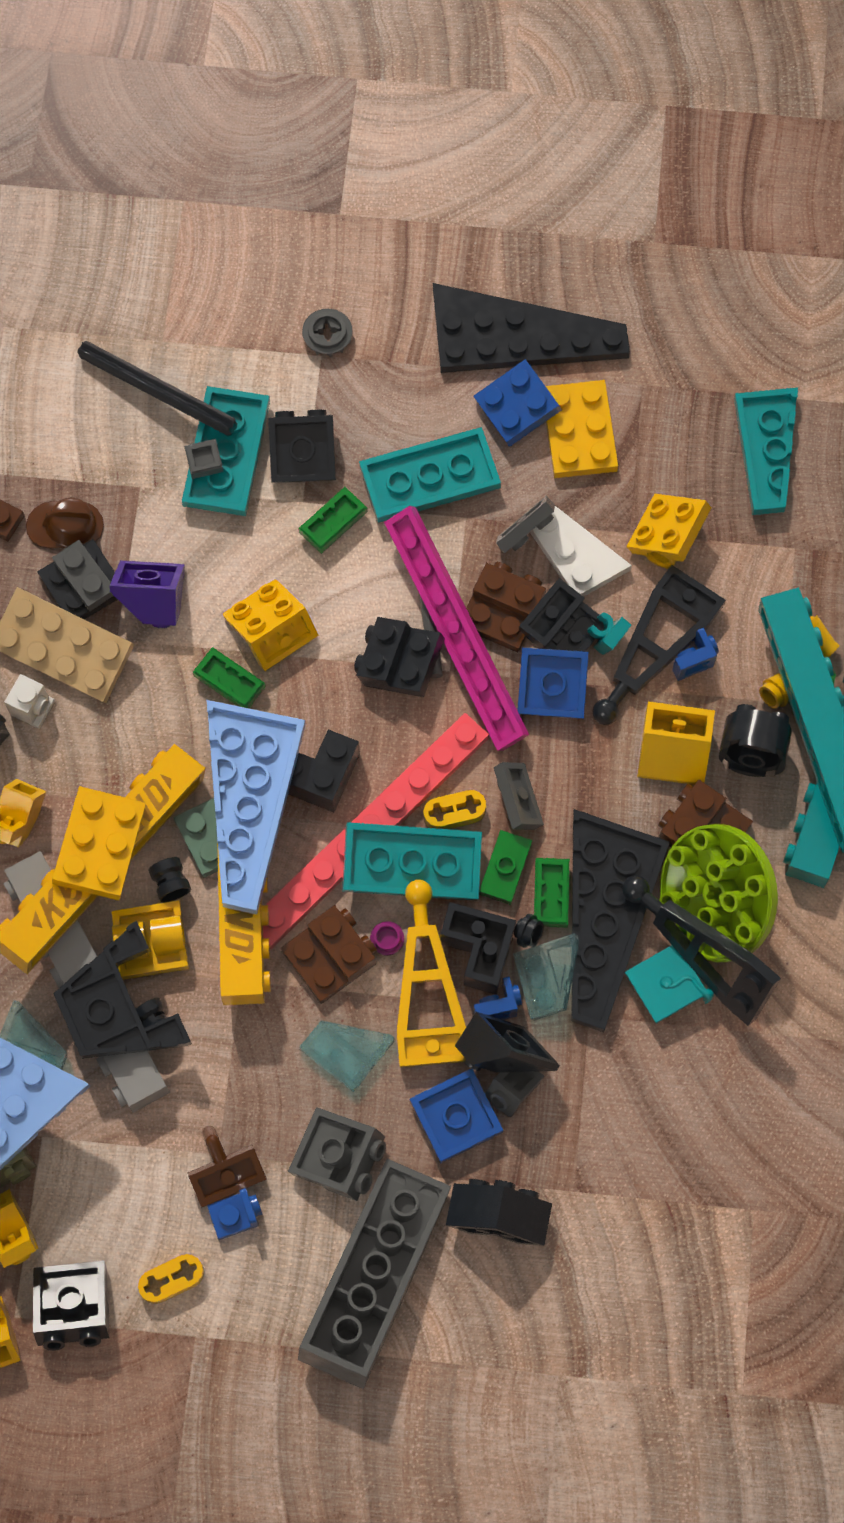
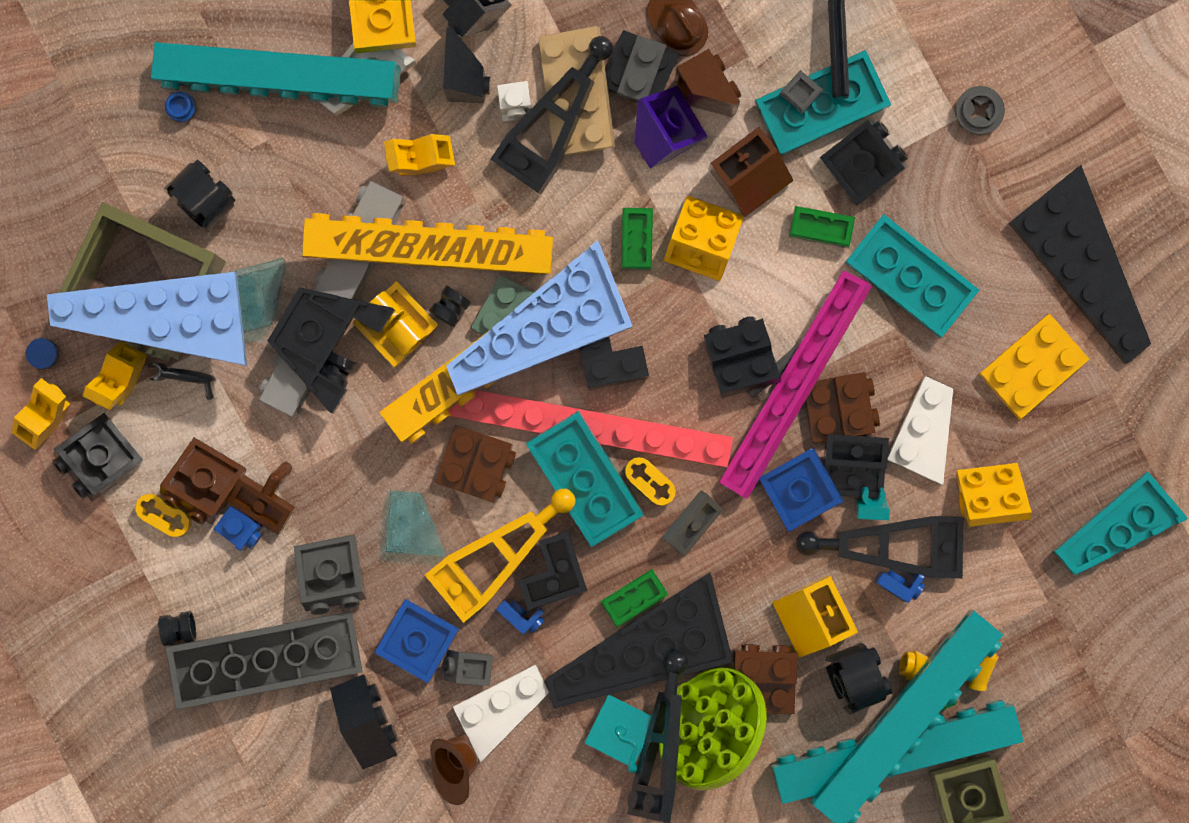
camera: 55 degrees right, 15 degrees up
(53, 1167) = (184, 375): none -> black piece
(90, 728) = (525, 163): none -> black plate
(98, 843) = (431, 239): yellow plate -> none
(140, 528) = (706, 86): none -> reddish brown slope
(166, 1218) = (201, 482): none -> reddish brown plate
(241, 544) = (751, 171): none -> reddish brown slope
(287, 1336) = (177, 628): none -> black wheel
(387, 938) = (516, 498): magenta plate -> none
(502, 1047) = (488, 644): black slope -> none
(505, 867) = (631, 549): green plate -> none
(516, 534) = (908, 379): dark grey plate -> none
(517, 403) = (1020, 303): blue plate -> none
(528, 931) = (589, 603): black plate -> none
(547, 975) = (566, 638): clear light blue wing -> none
(574, 1091) = (499, 709): none -> white wing
(599, 1161) = (452, 766): none -> reddish brown piece

